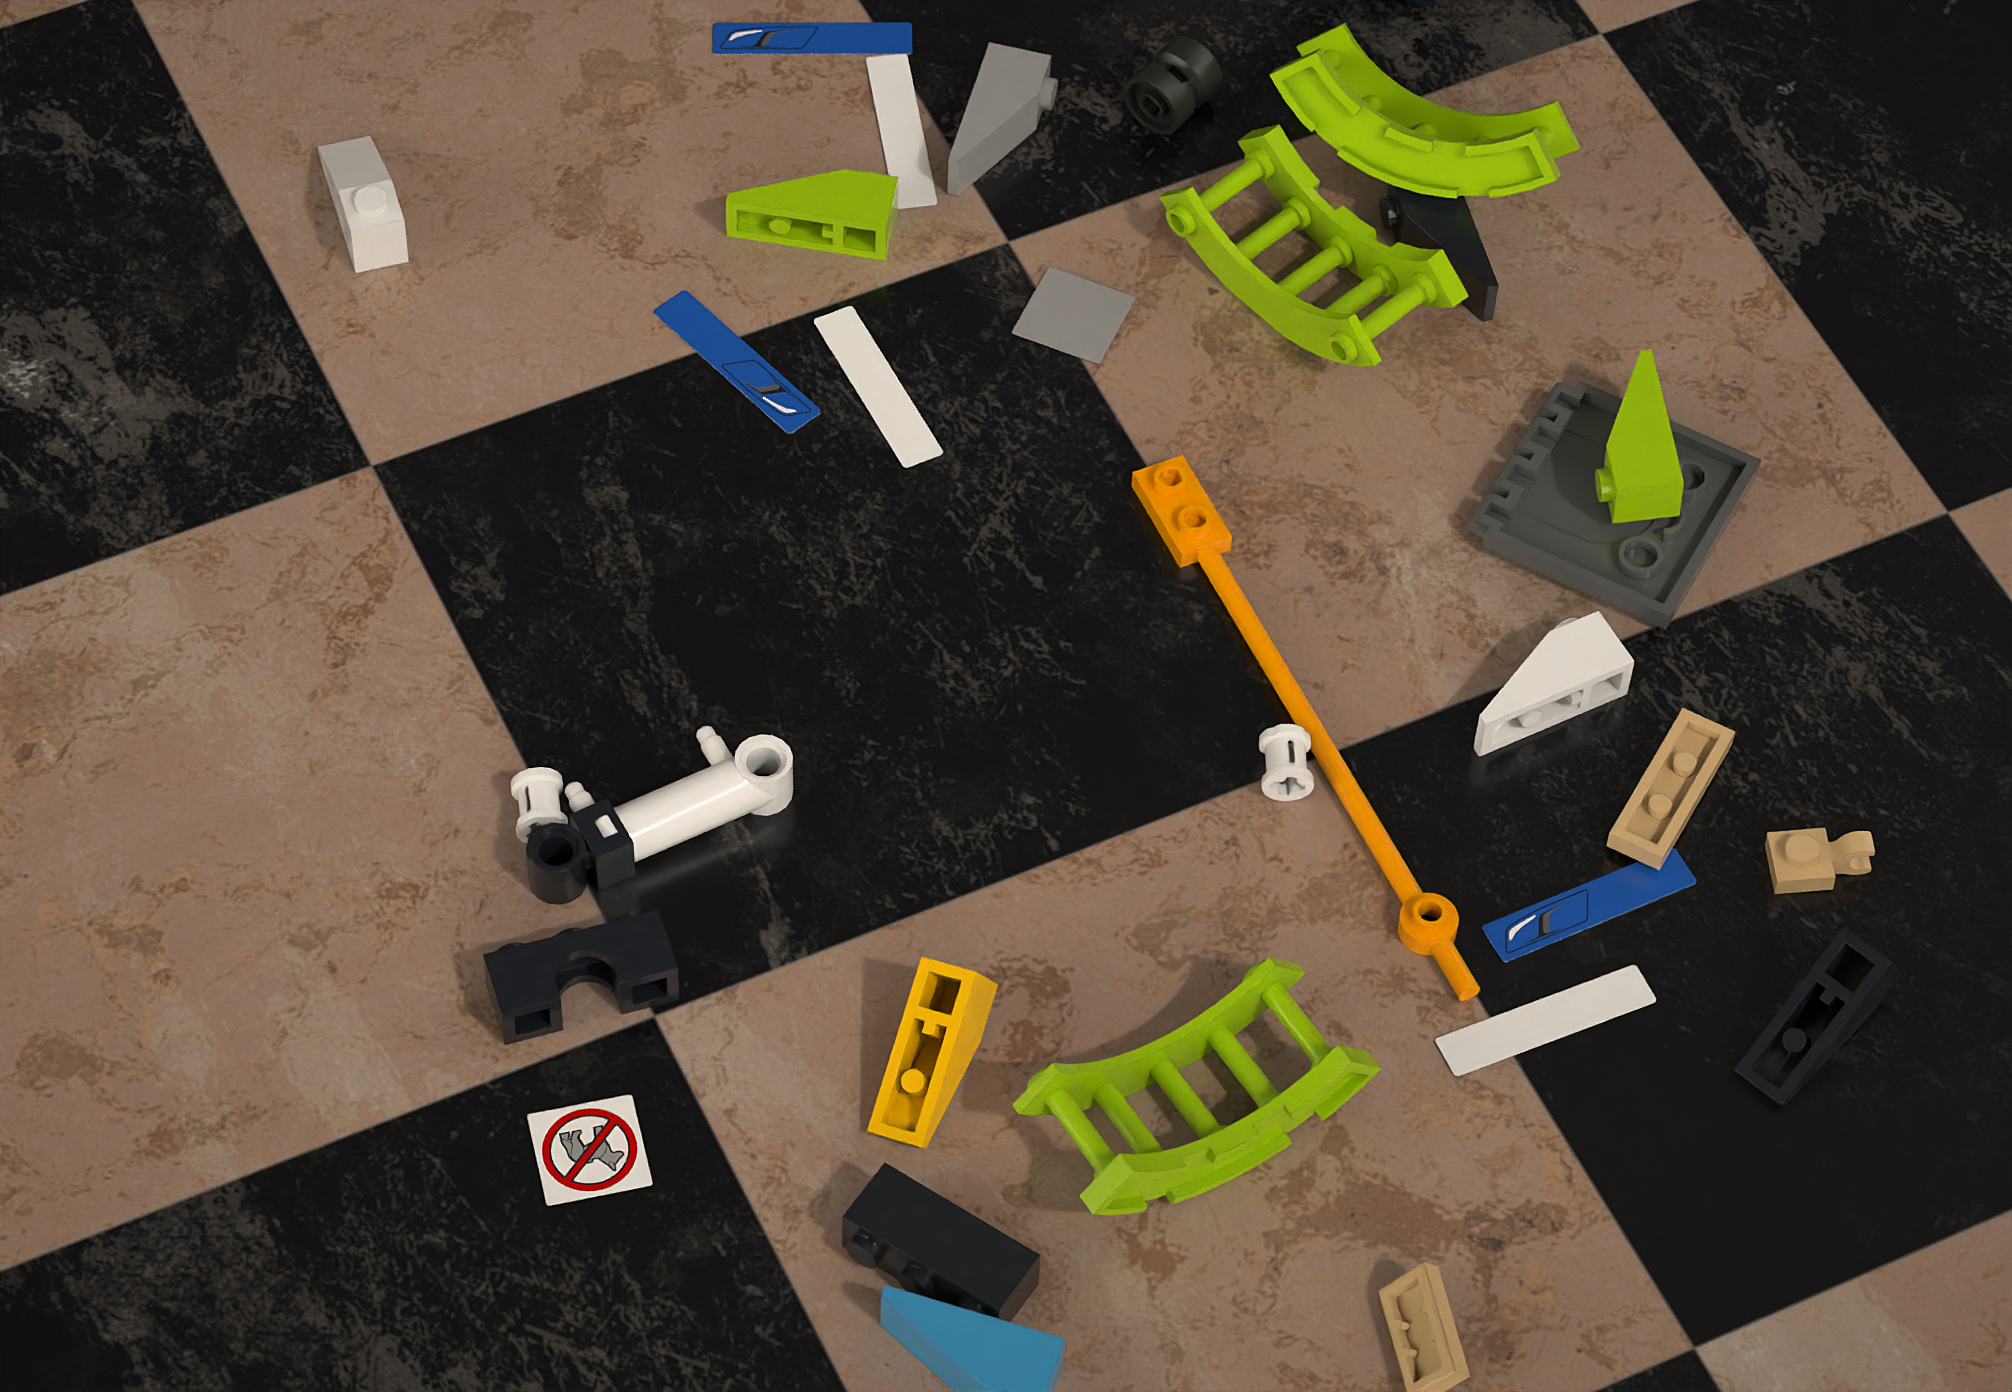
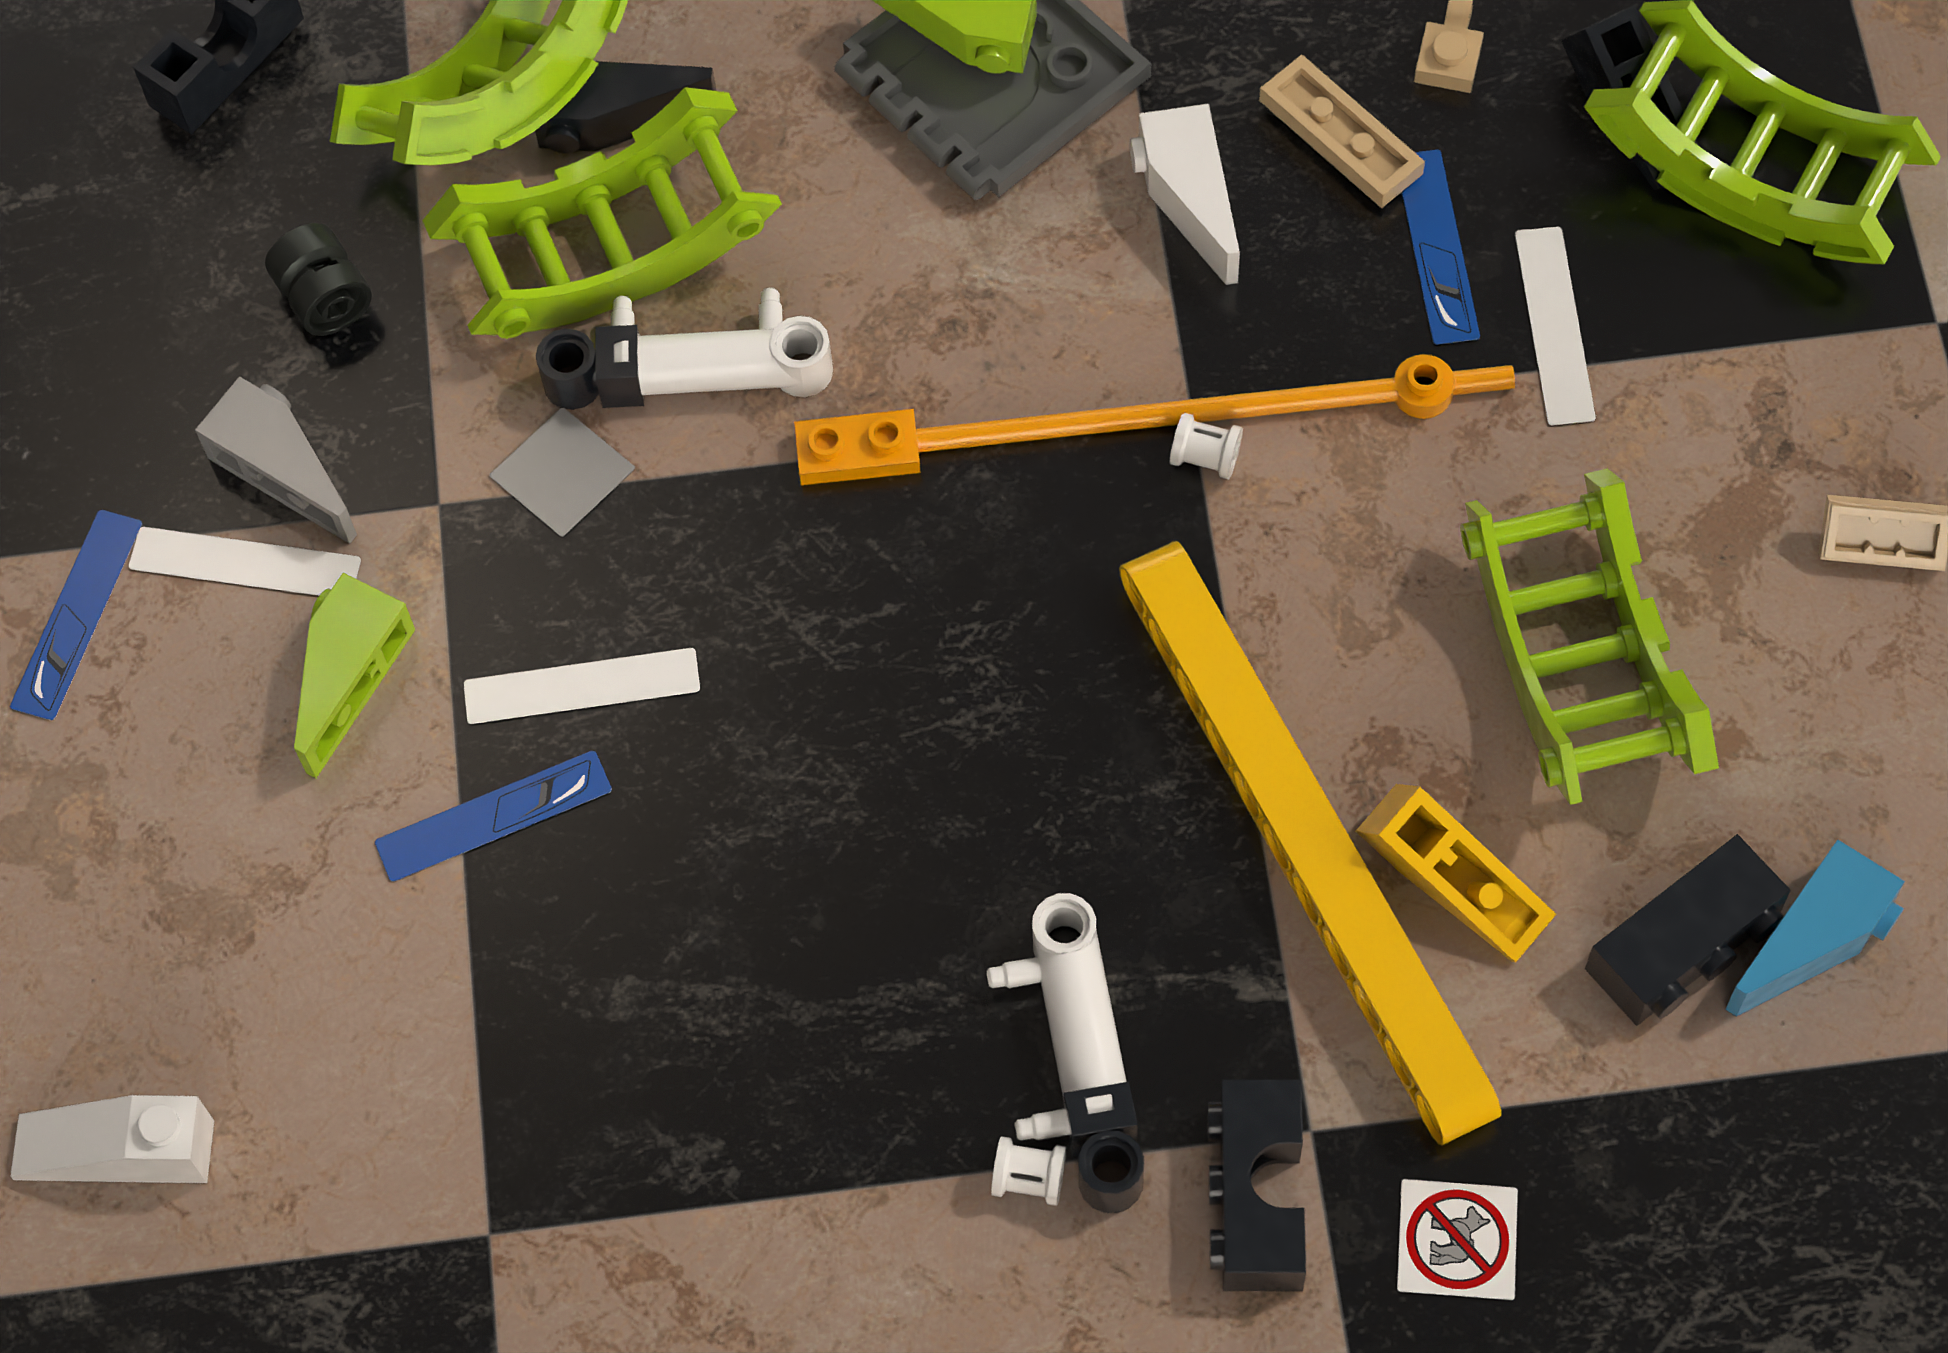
camera: 65 degrees left, 10 degrees up
(932, 922) = (1311, 845): none -> yellow beam
(1185, 325) = (634, 365): none -> white piece
(1754, 1123) = (1729, 191): none -> lime fence

